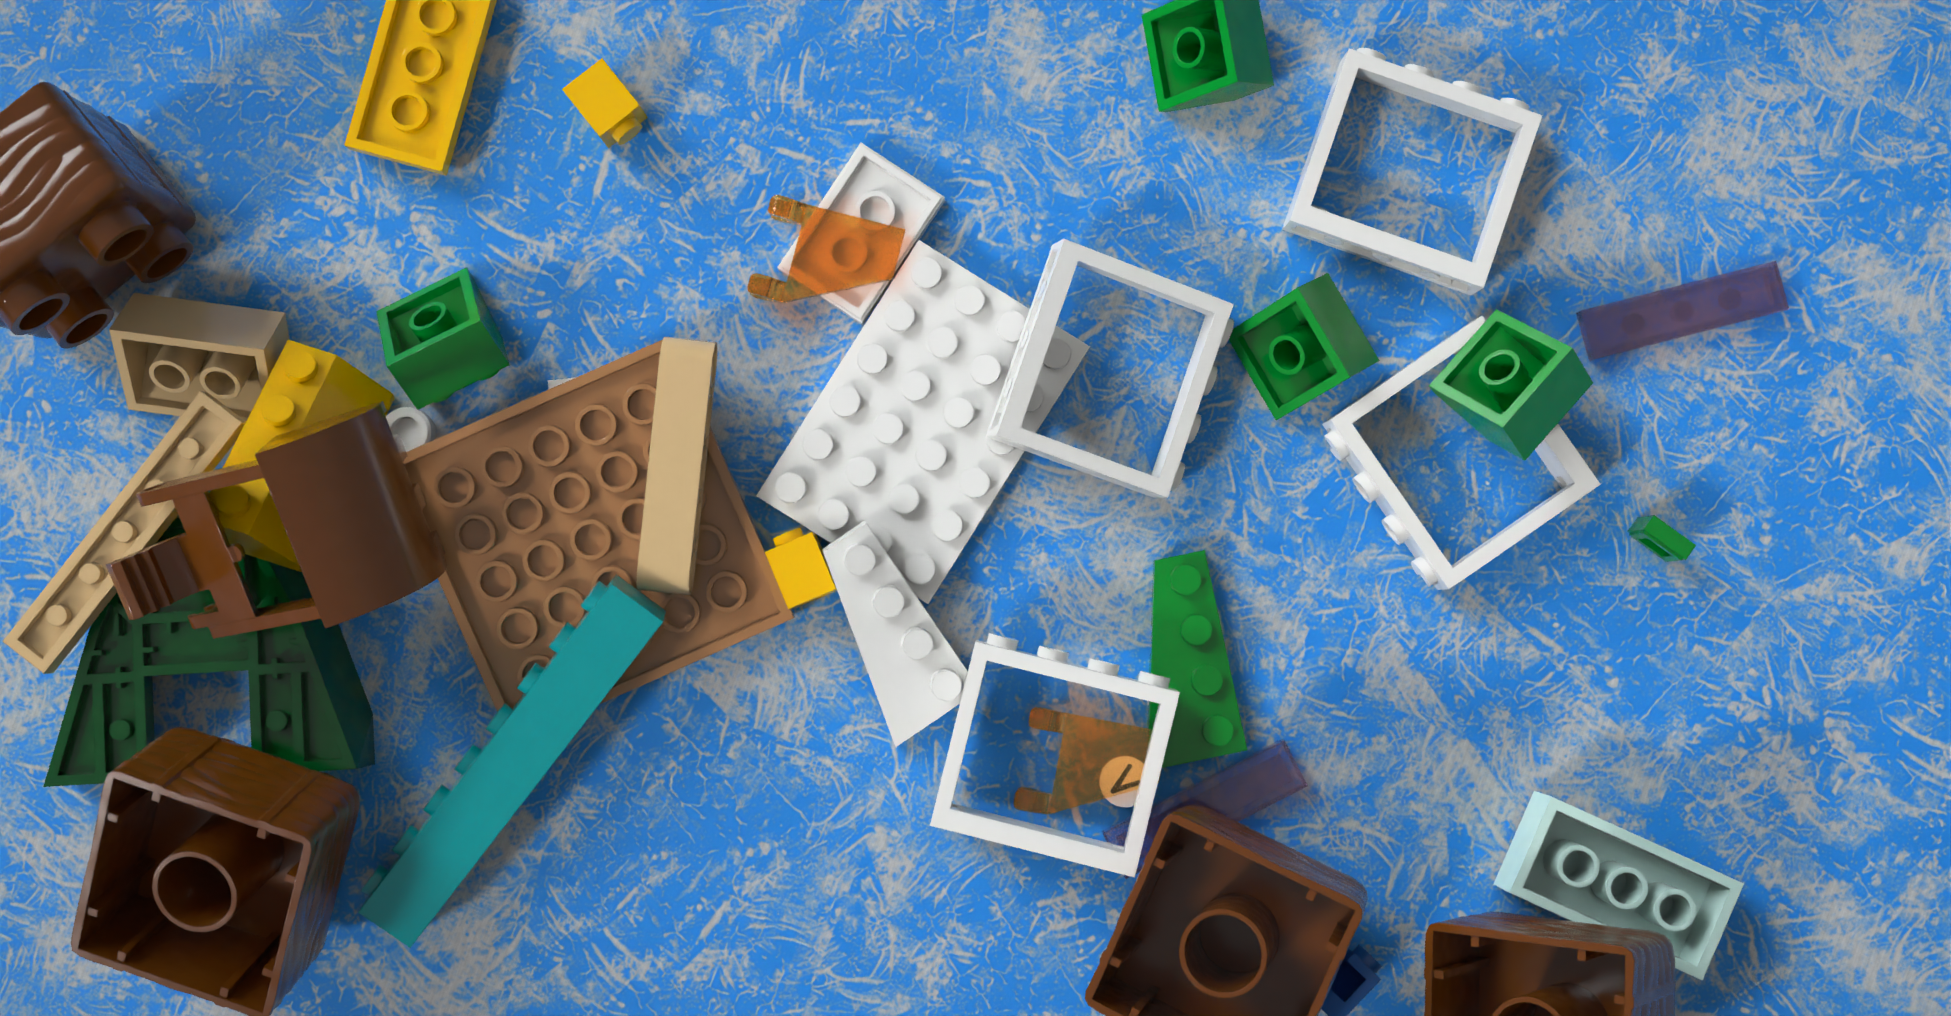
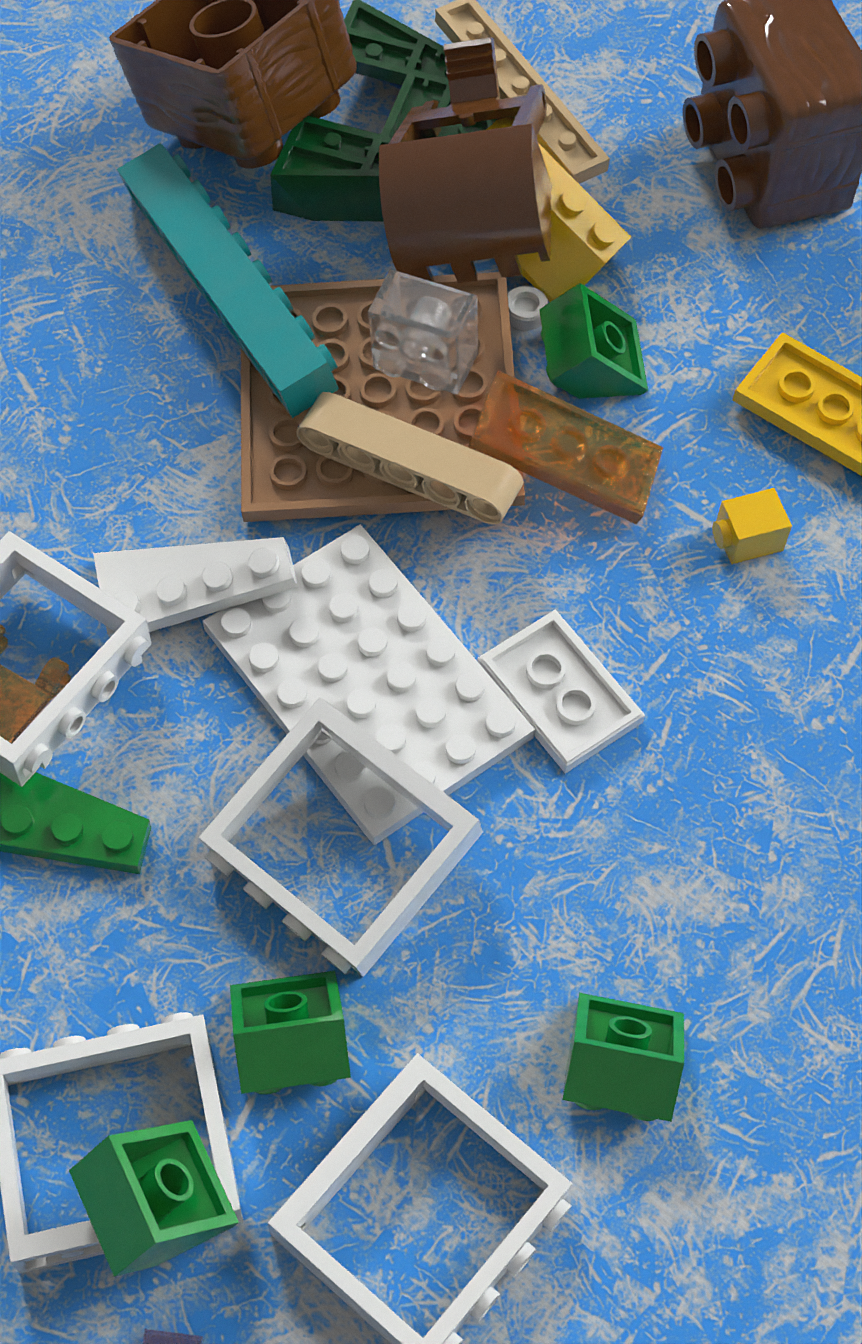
camera: 110 degrees right, 25 degrees down
(184, 346) = (650, 186): tan slope -> none
(528, 502) = (423, 331): none -> clear brick
(589, 318) = (566, 447): none -> clear orange tile
(800, 568) = (284, 520): yellow brick -> none
(830, 254) = (550, 653): clear orange flag -> none

